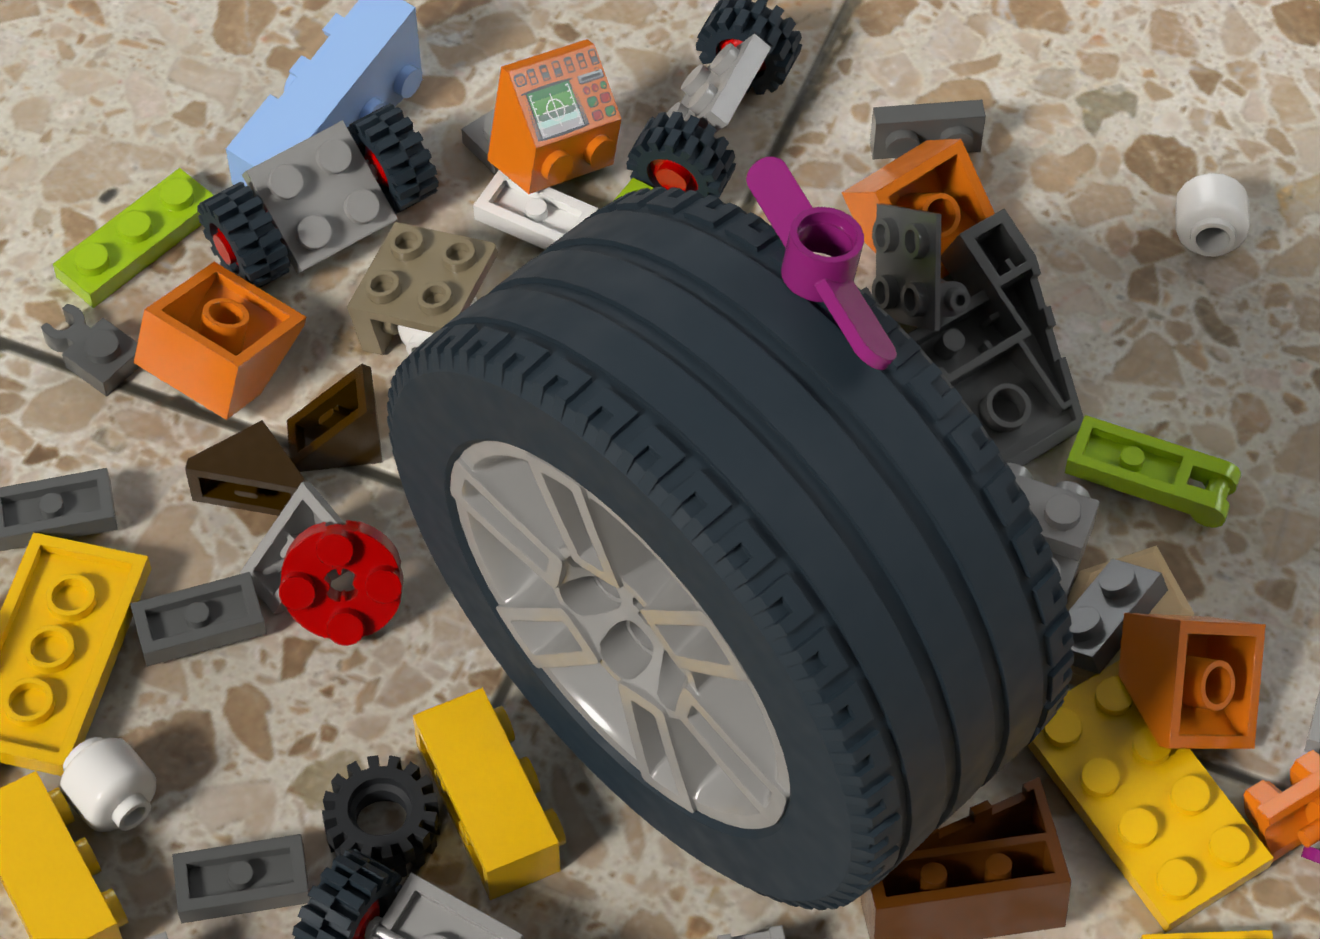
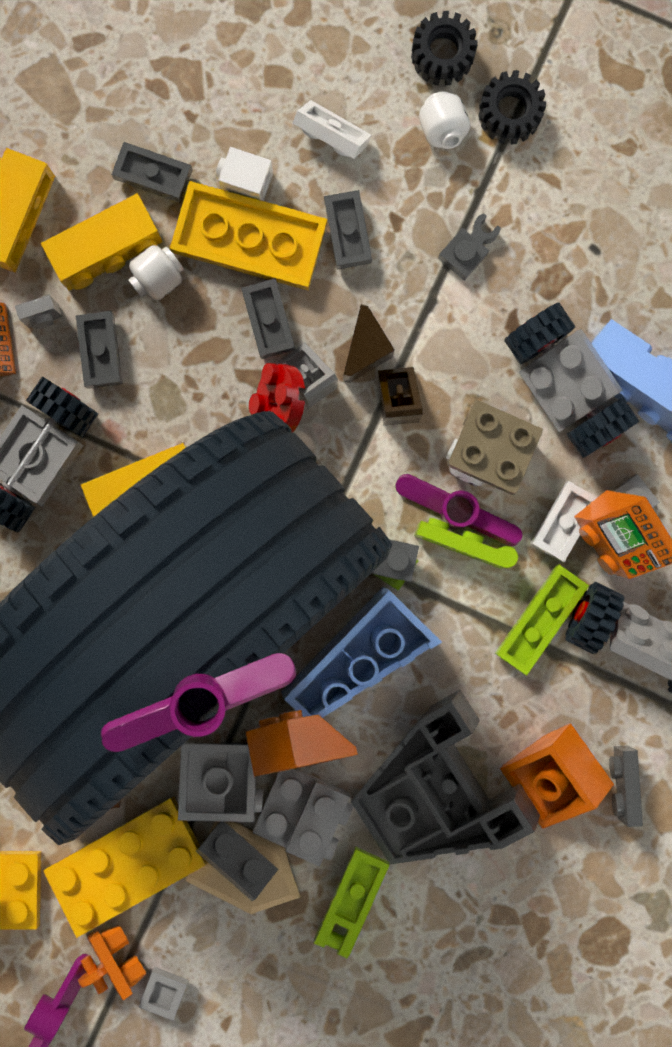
camera: 90 degrees right, 30 degrees up
(133, 239) = (556, 268): lime plate -> none
(217, 339) = (465, 321): orange slope -> none
(377, 785) = (117, 411): black tyre -> none
(910, 269) = (490, 764): dark grey hinge -> none
(1194, 678) = (188, 908): orange slope -> none
(1212, 214) = (548, 971): white head -> none

